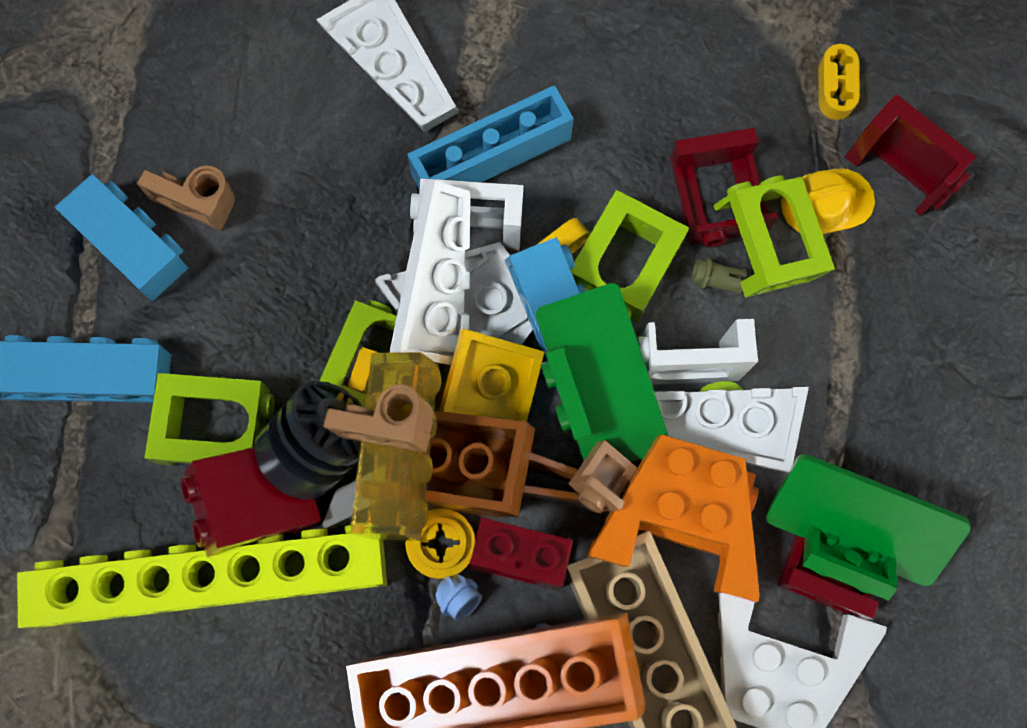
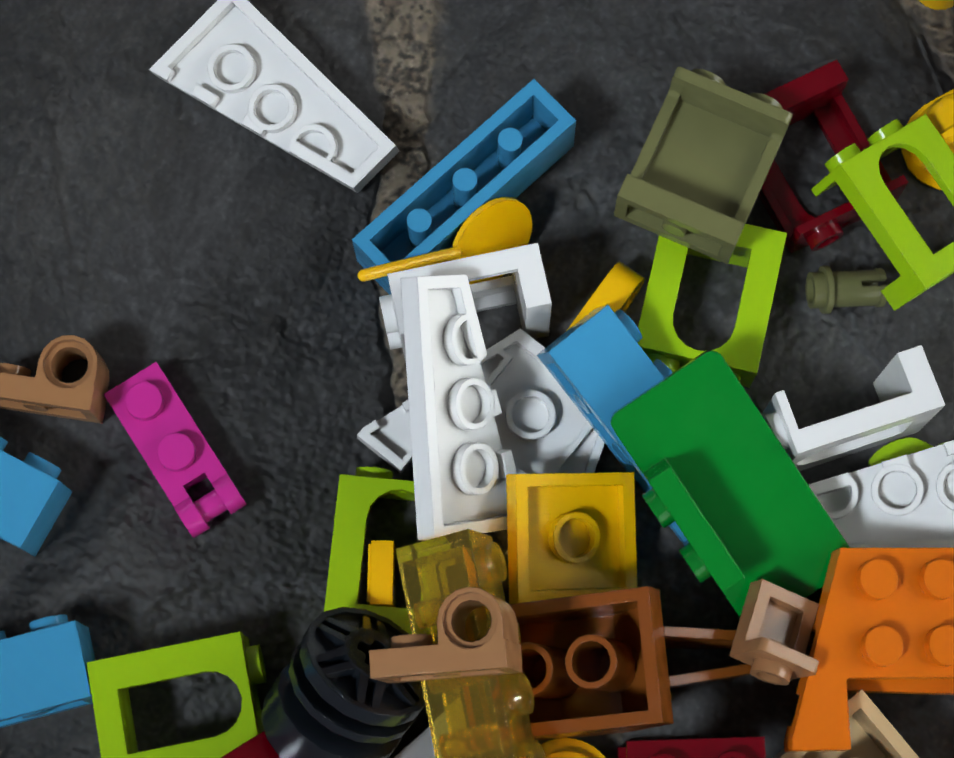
camera: 10 degrees left, 0 degrees up
(259, 257) = (173, 447): none -> dark pink plate
(497, 169) = (490, 228): none -> yellow piece
(647, 168) = (703, 163): none -> olive panel

